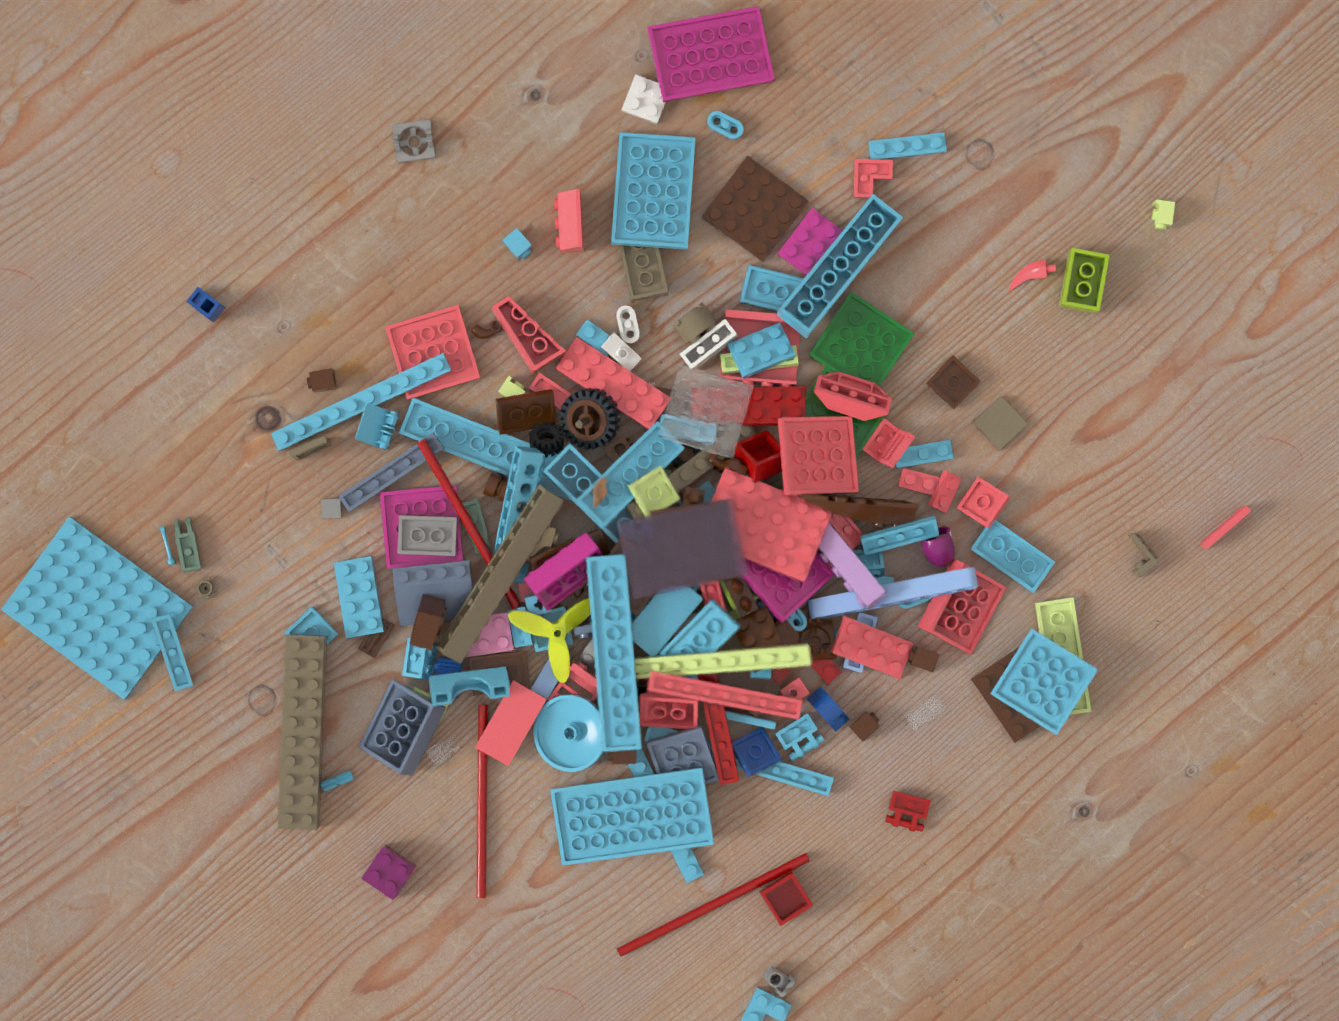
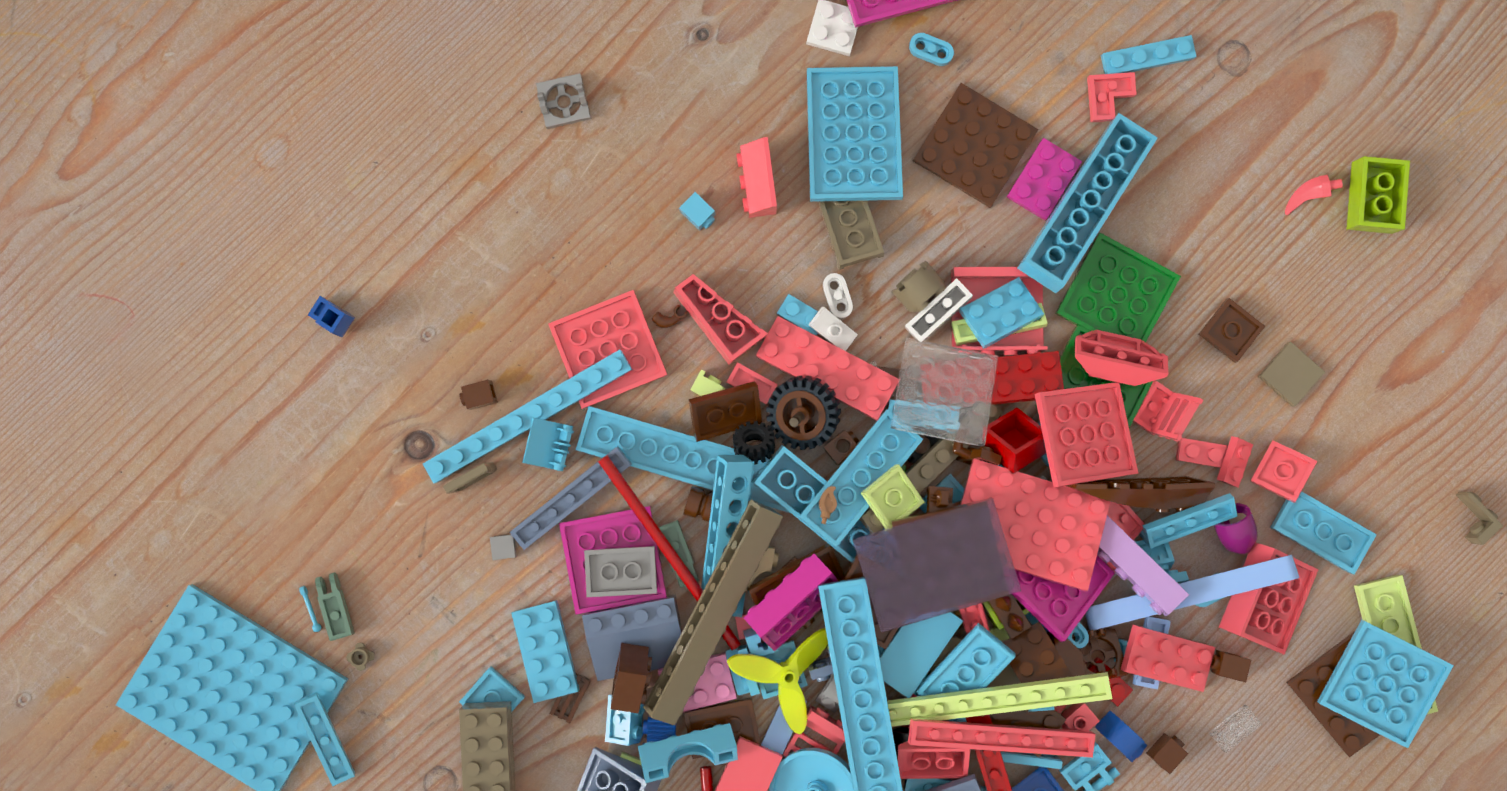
camera: 10 degrees left, 0 degrees up
(767, 288) = (1001, 238): medium azure tile -> none
(926, 454) = (1213, 417): medium azure plate -> none
(1163, 214) = (1461, 108): yellowish green brick -> none

